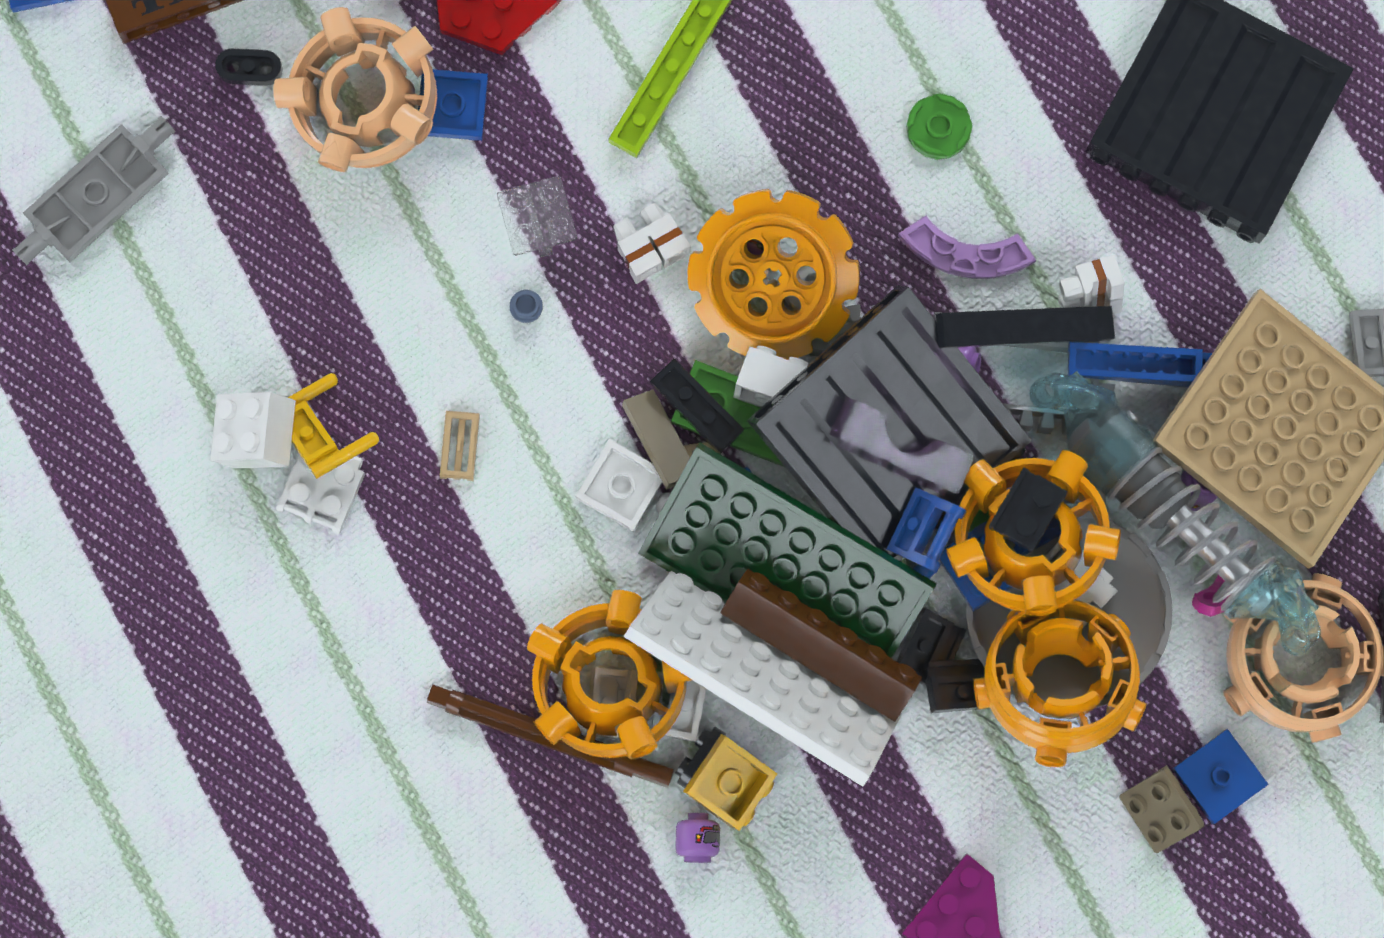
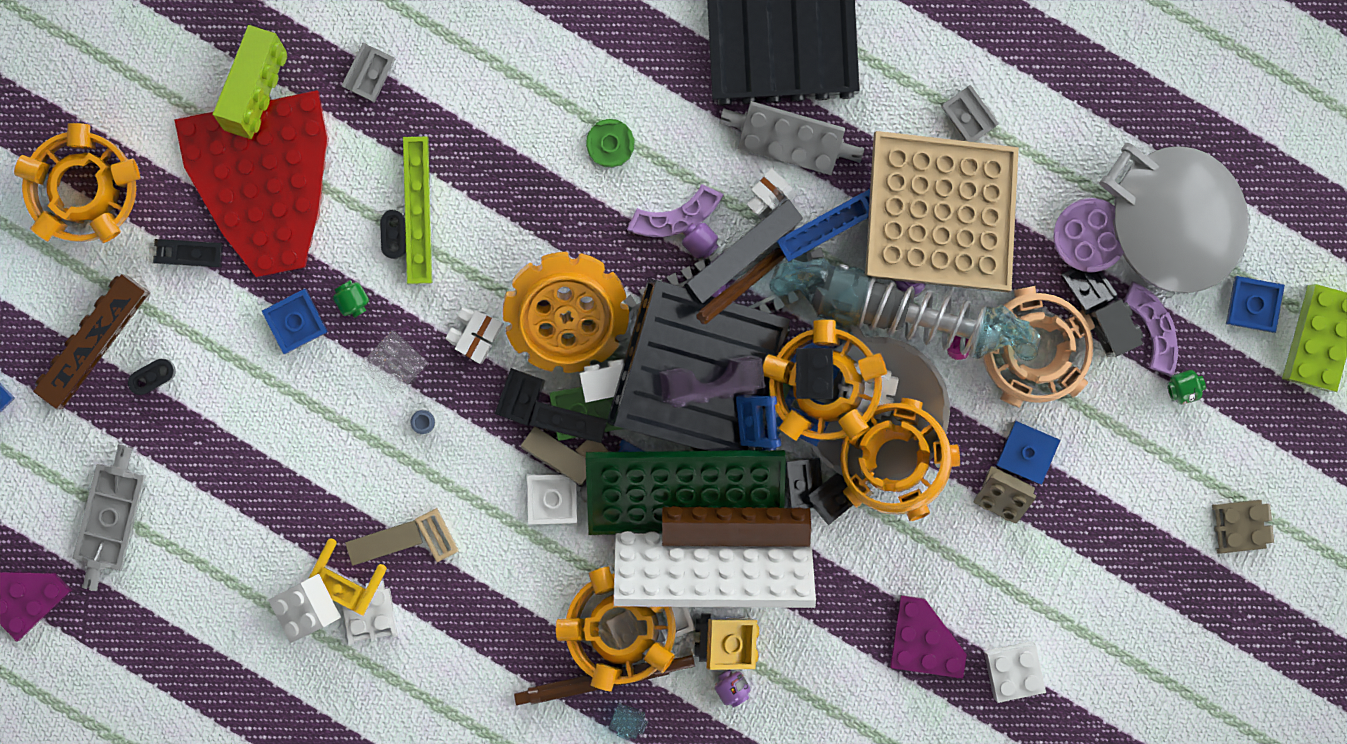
camera: 20 degrees left, 10 degrees up
(392, 416) = (383, 542): none -> dark tan tile
(395, 111) = (261, 343): light nougat piece -> none
(533, 116) = (350, 299): none -> green head
(547, 802) = (628, 722): none -> clear light blue brick
(625, 77) = (393, 234): none -> black plate
(657, 344) = (519, 396): none -> black plate
(977, 291) = (700, 240): none -> medium lavender head
(997, 363) = (740, 286): none -> reddish brown axle
(1154, 242) = (791, 137): none -> light grey plate

